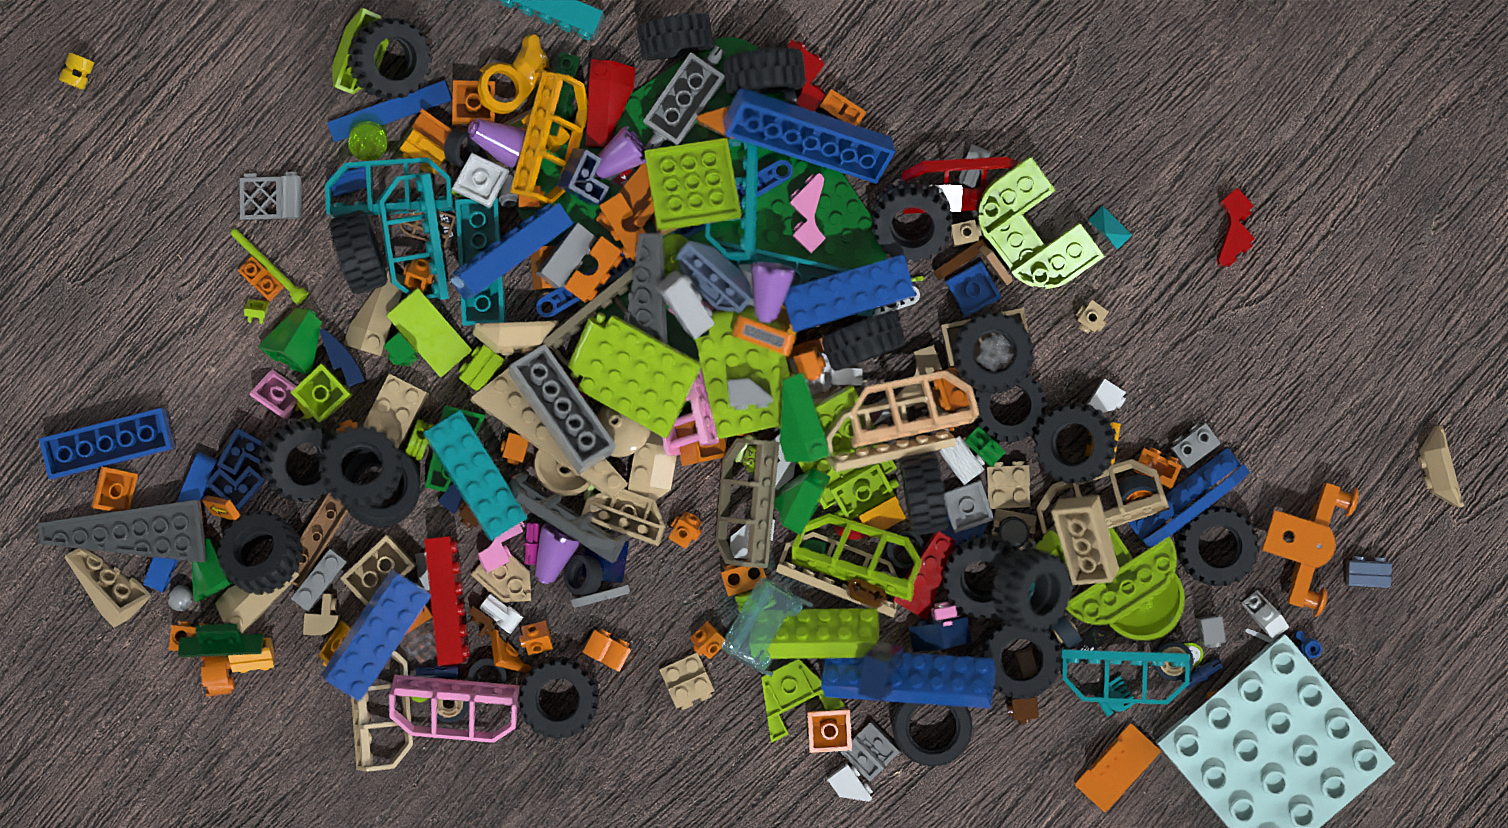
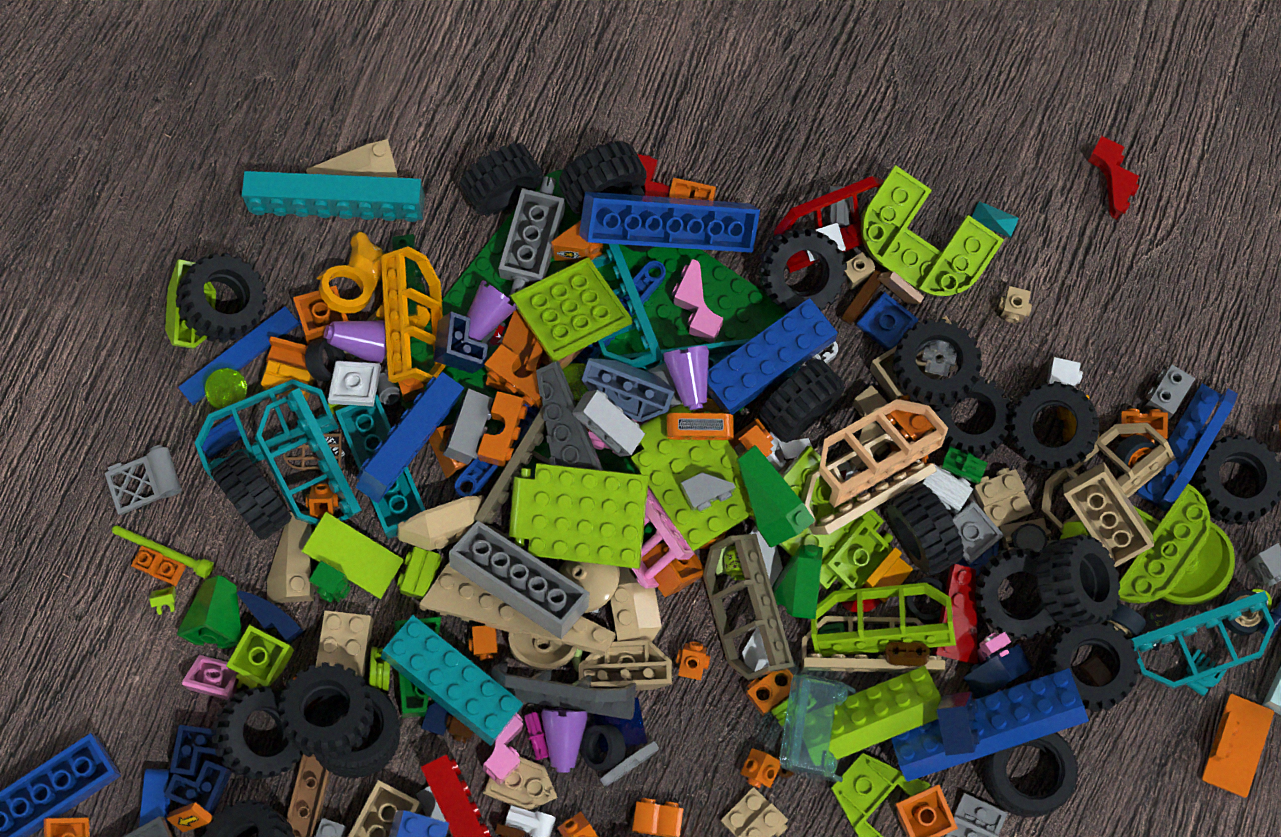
camera: 20 degrees left, 15 degrees down
(608, 93) = (454, 258): red wedge -> none
(1023, 709) = (1116, 719): reddish brown brick -> none

